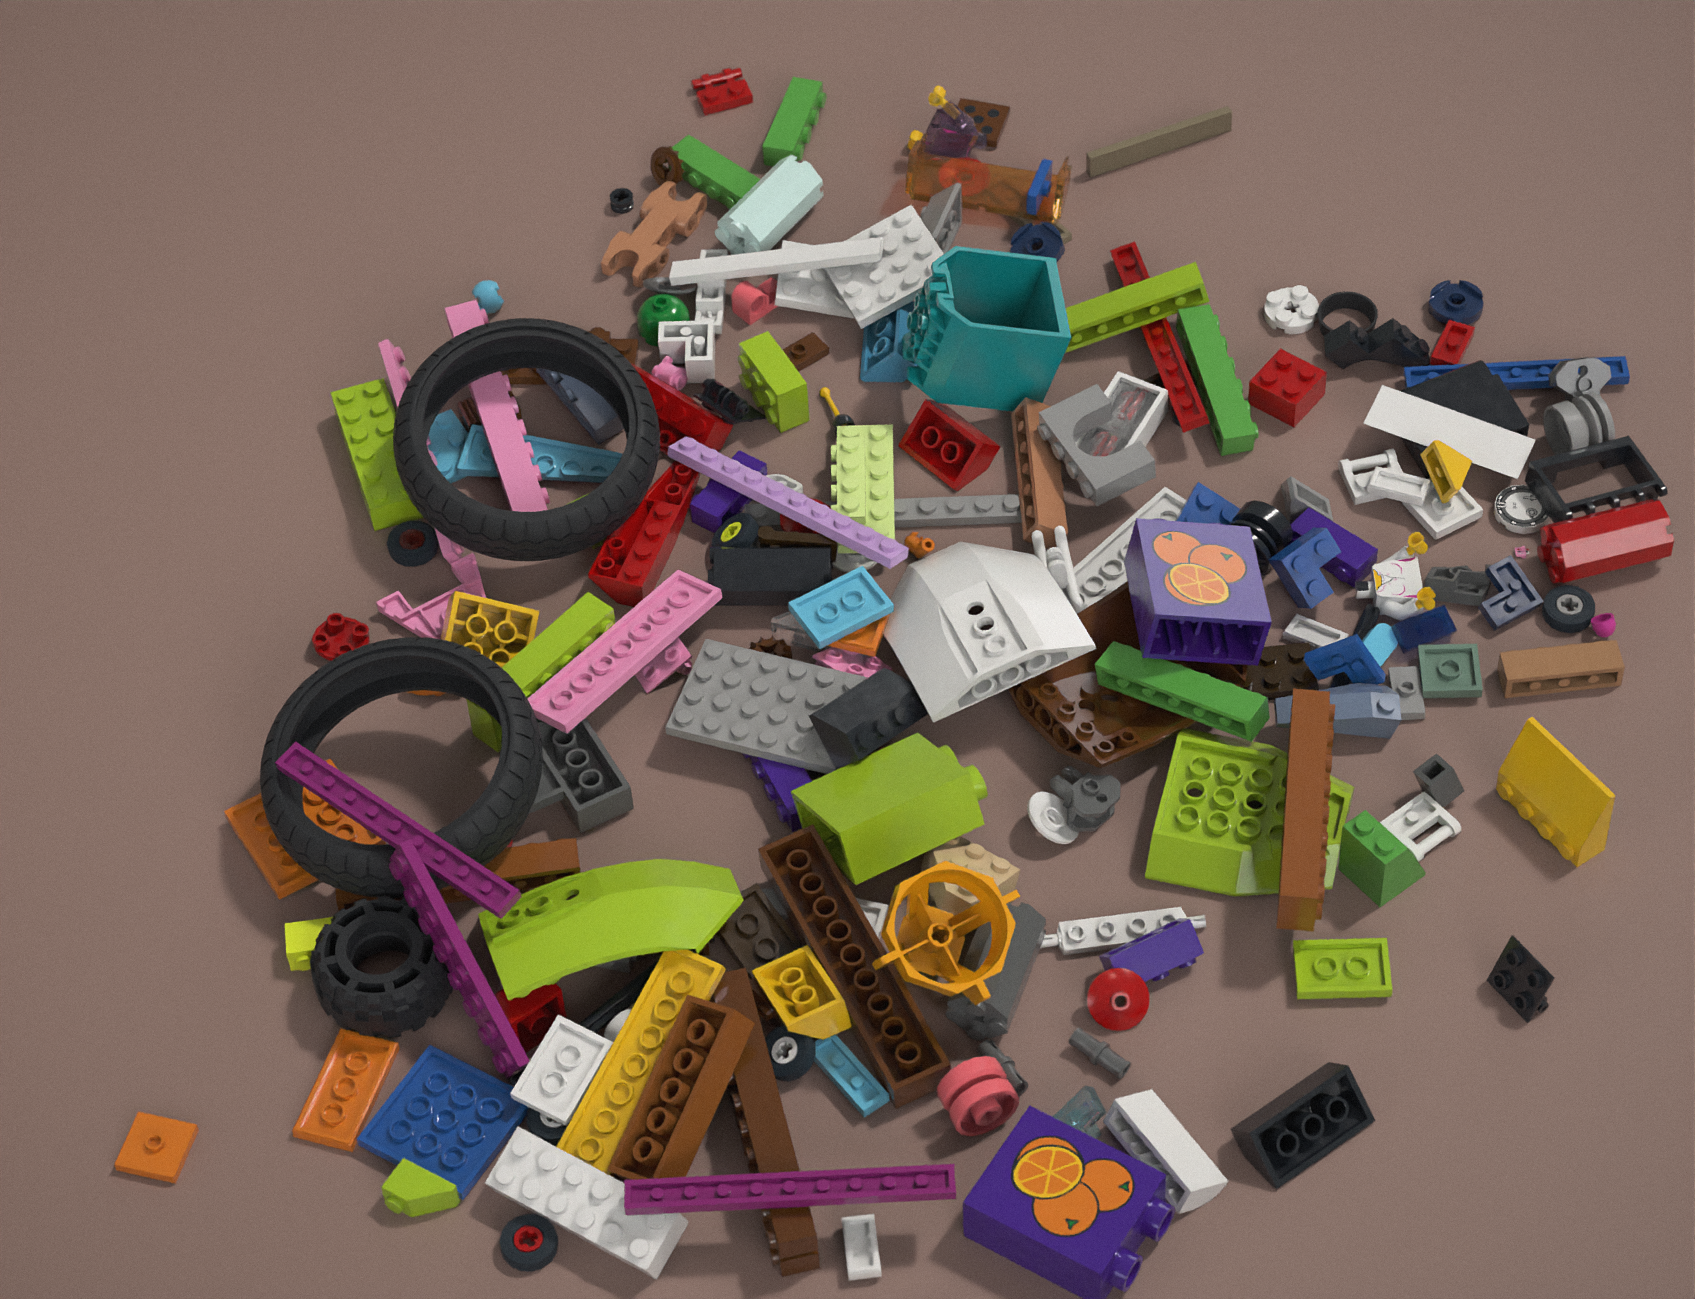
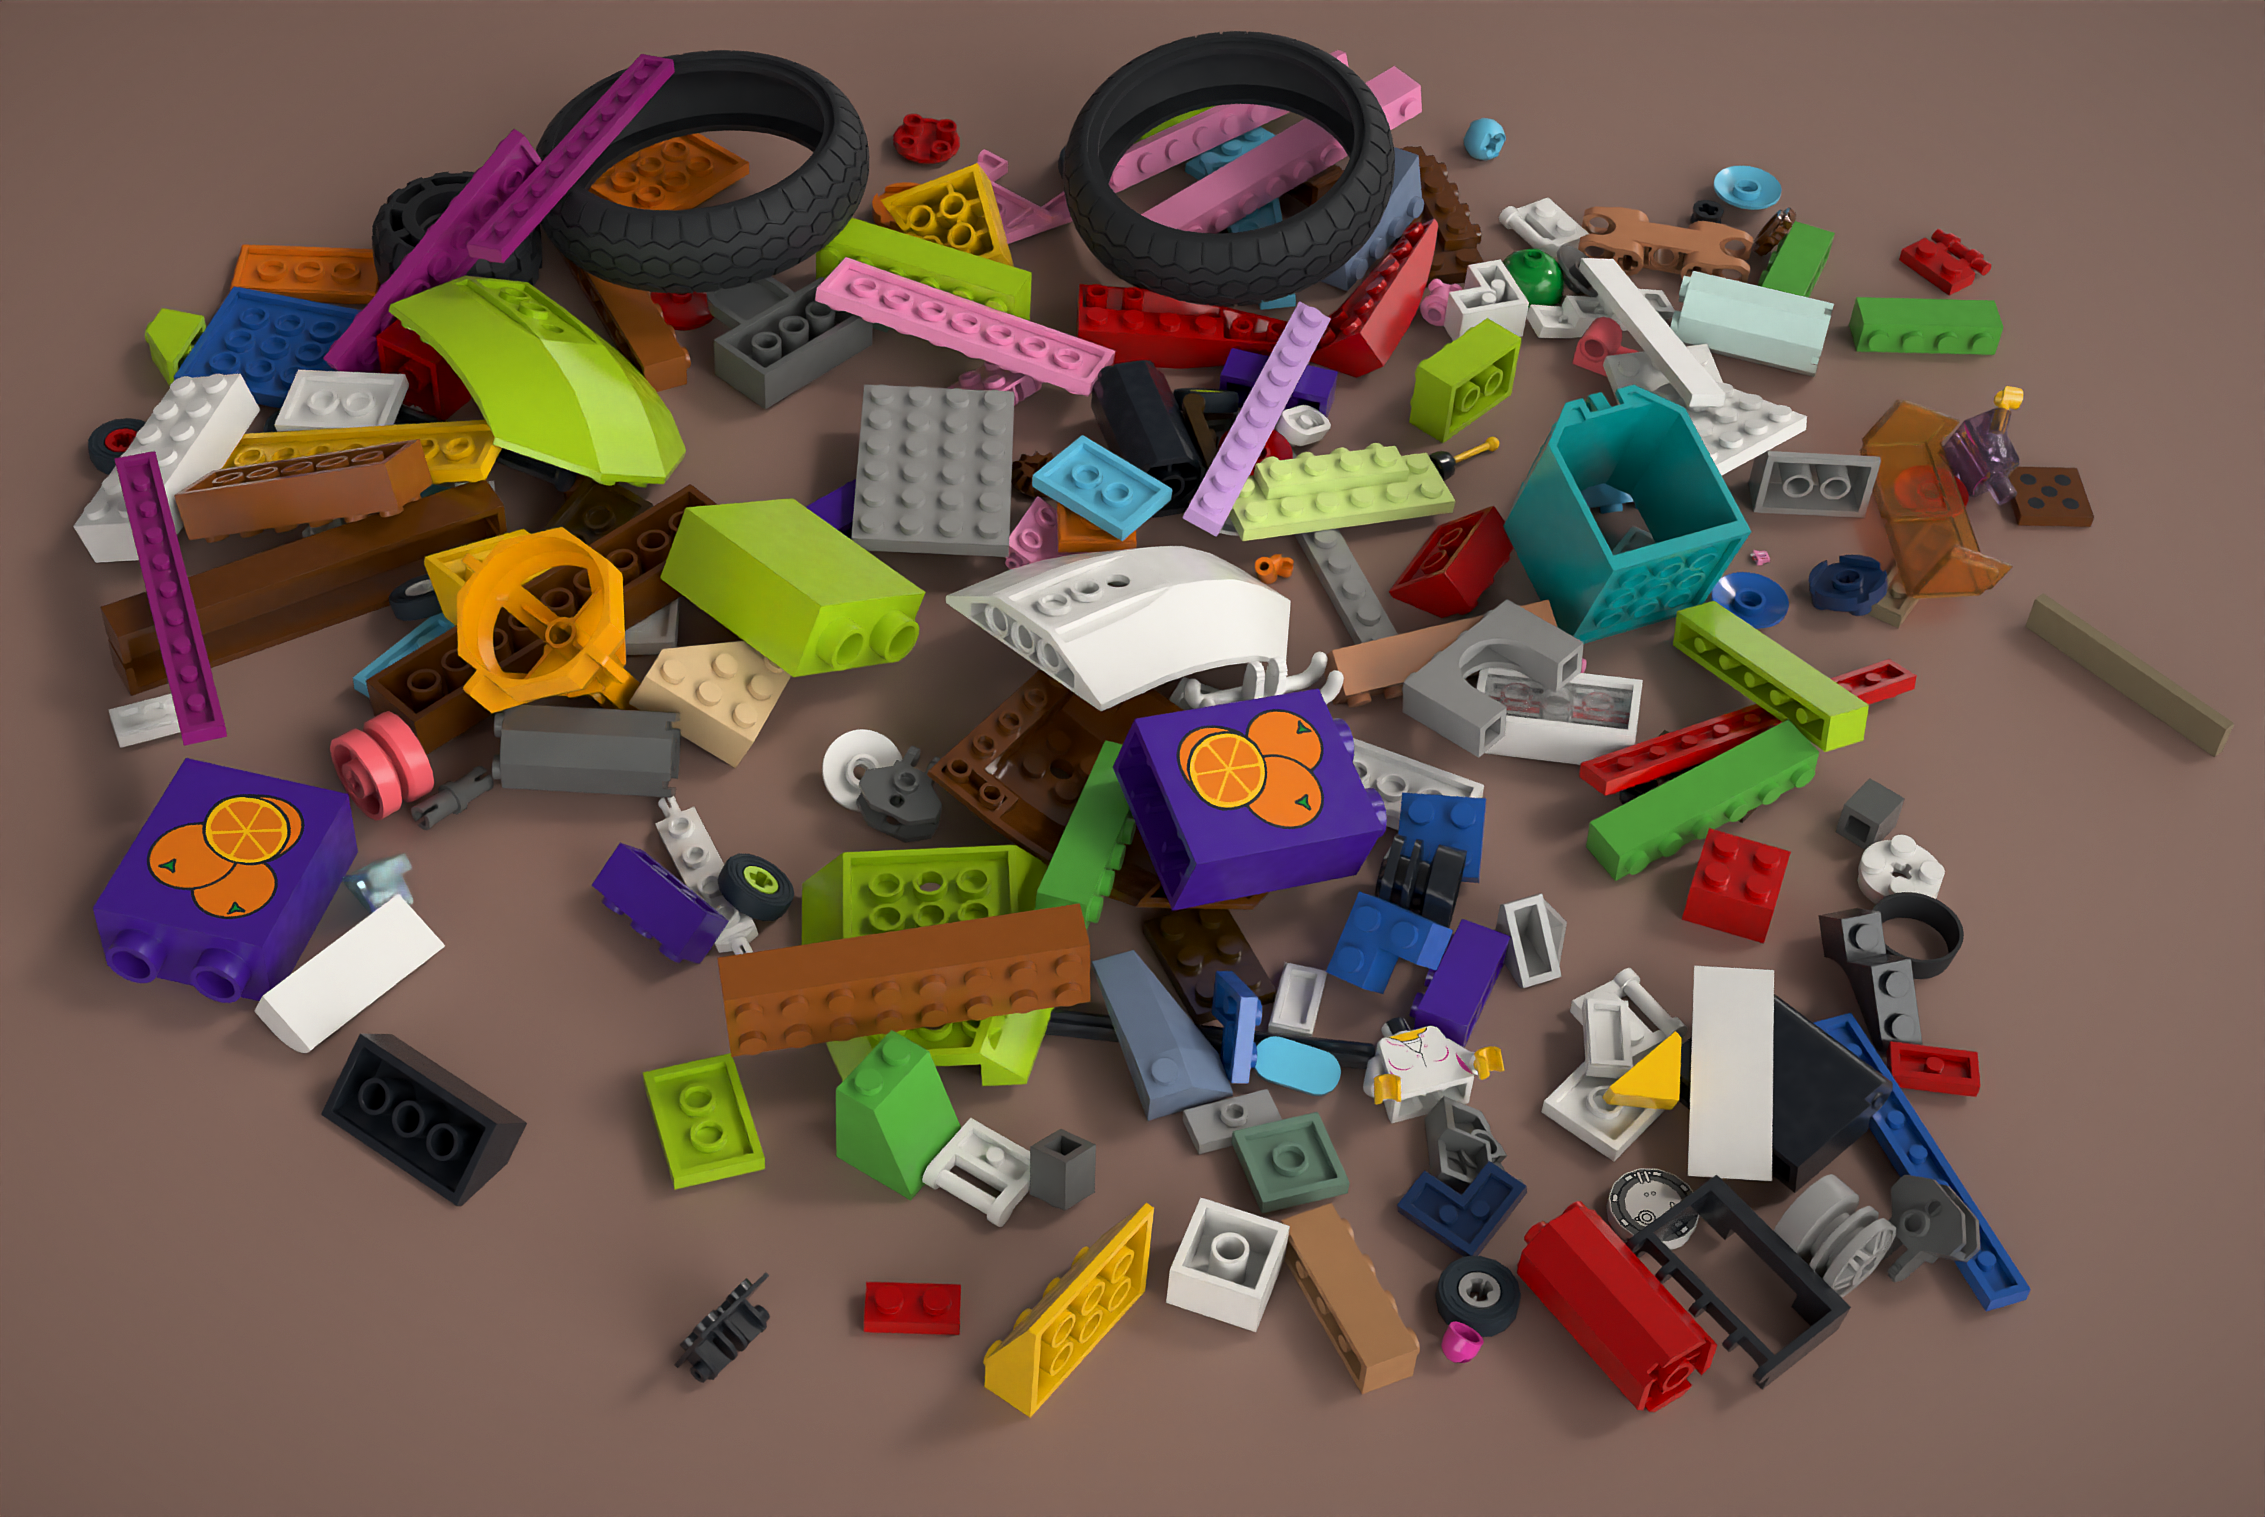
camera: 65 degrees right, 5 degrees down
(156, 1147) = (206, 161): orange plate -> none
(599, 293) = (1543, 226): none -> white plate
(606, 167) = (1747, 187): none -> medium azure dish
(727, 403) = (1407, 346): black hinge -> none
(806, 351) = (1532, 406): reddish brown plate -> none
(867, 716) = (934, 539): black slope -> none
(1040, 187) = (1925, 550): blue plate -> none
(1099, 1053) = (497, 887): dark grey pin -> none
(1102, 997) = (580, 883): red dish -> none
(1148, 899) = (755, 887): none -> black bush
(1244, 305) = (1869, 814): none -> dark grey brick
(1423, 629) = (1354, 1116): clear blue plate -> none
(1464, 292) = (2028, 1083): dark blue plate -> none
(1514, 889) = (912, 1308): none -> red plate
(1525, 700) = (1227, 1264): none -> white brick

